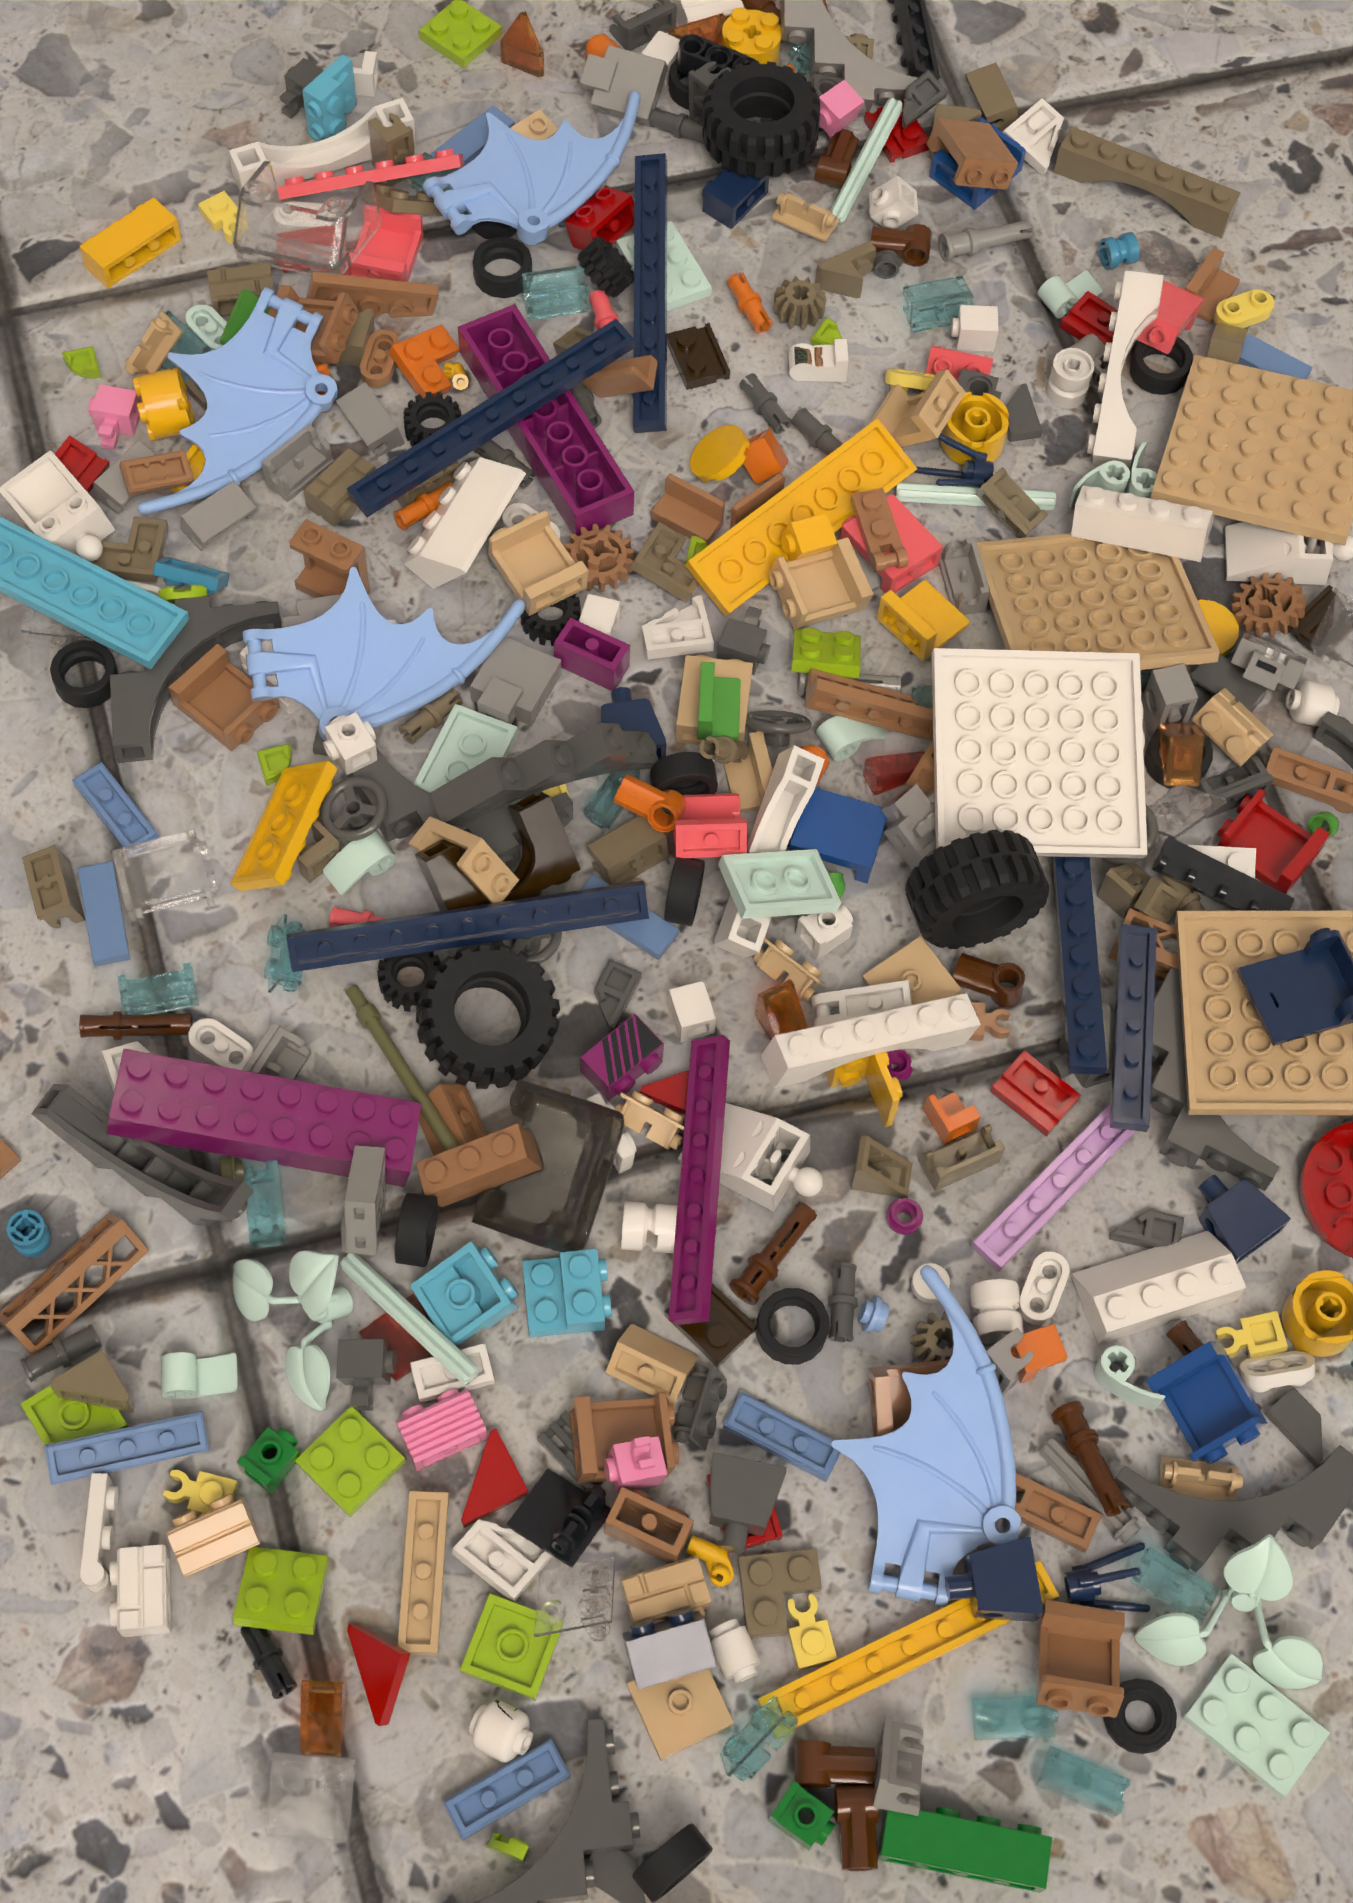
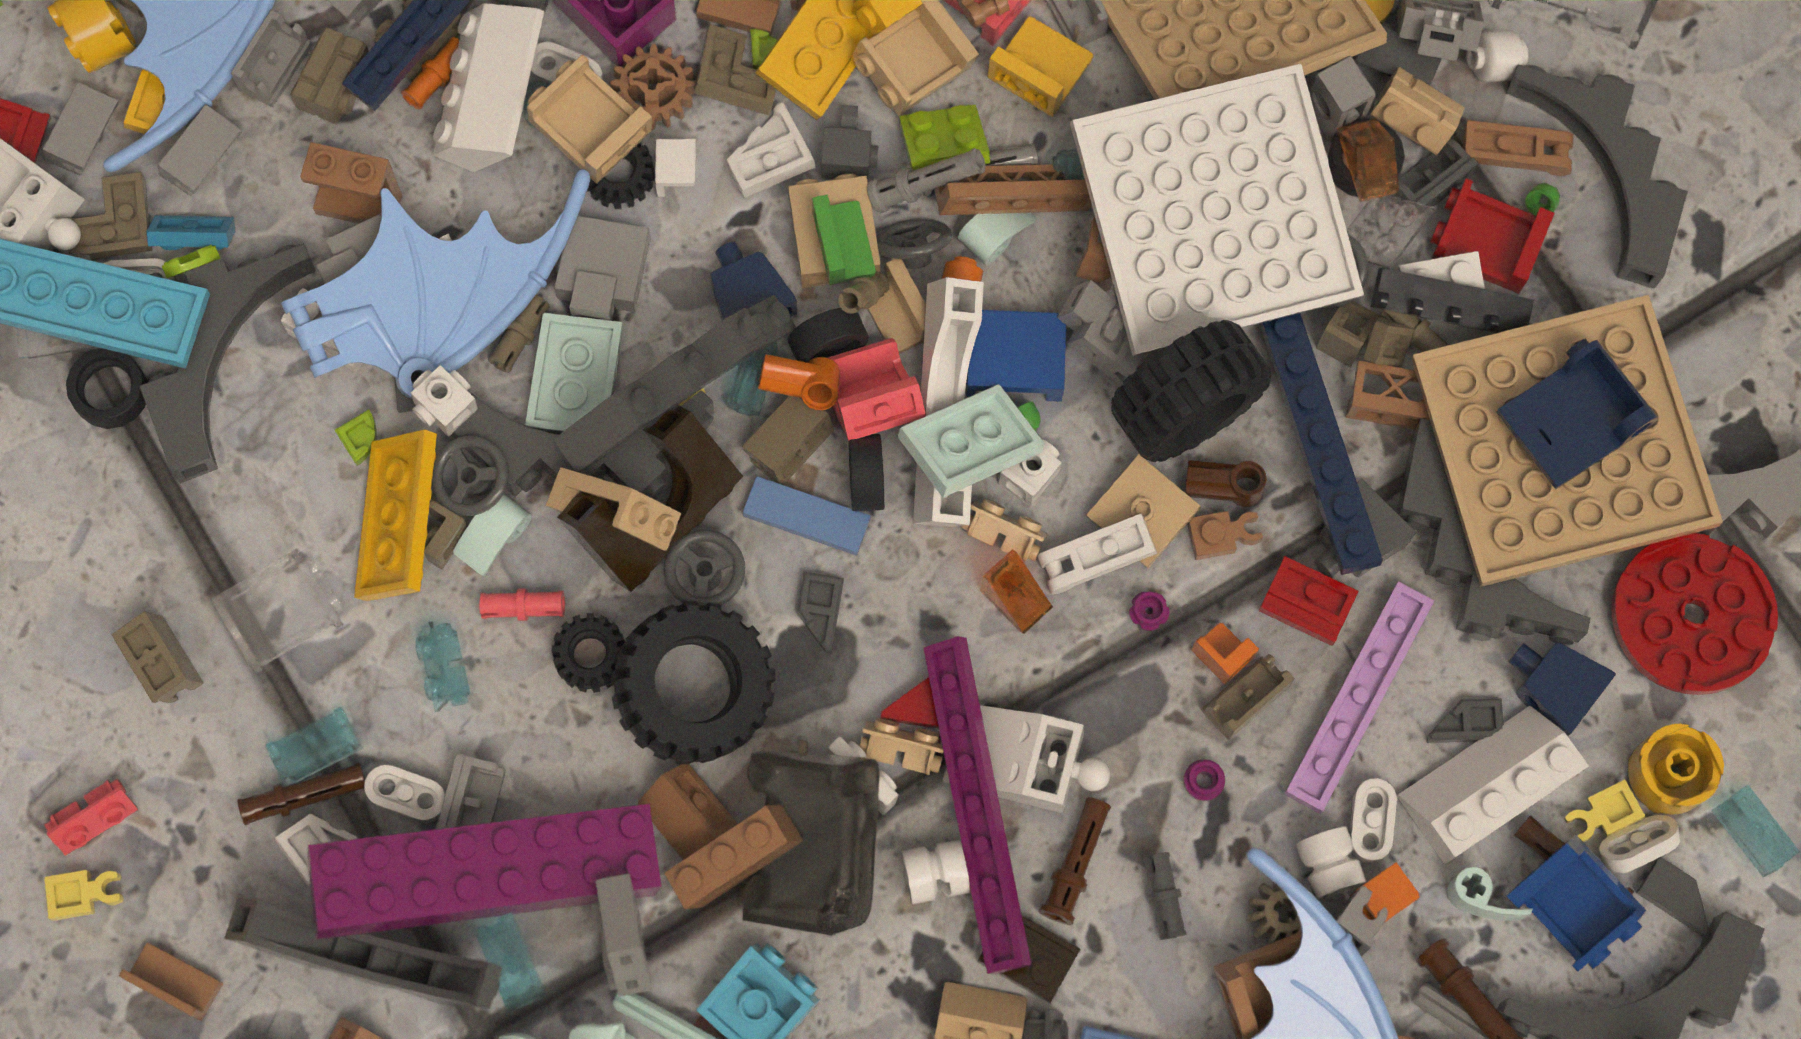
camera: 15 degrees left, 10 degrees up
(103, 914) = (222, 671): medium blue tile -> none
(114, 413) = (35, 50): bright pink brick -> none
(114, 806) = (195, 542): medium blue tile -> none
(156, 473) = (112, 119): medium nougat plate -> none
(220, 699) = (274, 377): medium nougat panel -> none
(231, 1168) = (461, 935): olive plate -> none
(371, 1019) = (559, 713): olive bar -> none
(416, 1229) = (686, 947): black tyre -> none
(467, 926) = (639, 583): dark blue plate -> none
(566, 1294) = (866, 969): medium azure plate -> none
(592, 654) = (681, 212): magenta brick -> none
(622, 1058) = (852, 684): magenta brick -> none
(691, 1011) = (912, 609): white panel -> none
(788, 676) = (910, 183): none -> light grey pin
(804, 1300) = (1144, 919): black tyre -> none
(814, 1050) = (1102, 609): white arch -> none
(873, 1314) = (1201, 901): light blue plate -> none
(880, 1170) = (1165, 736): dark tan slope -> none
(883, 1088) = (1127, 618): yellow bracket -> none
(890, 771) = (1054, 263): clear red slope -> none
(921, 1289) = (1248, 838): white tile -> none
(1133, 1028) = (1398, 503): dark blue plate -> none
(1200, 1479) = (1589, 987): tan hinge -> none

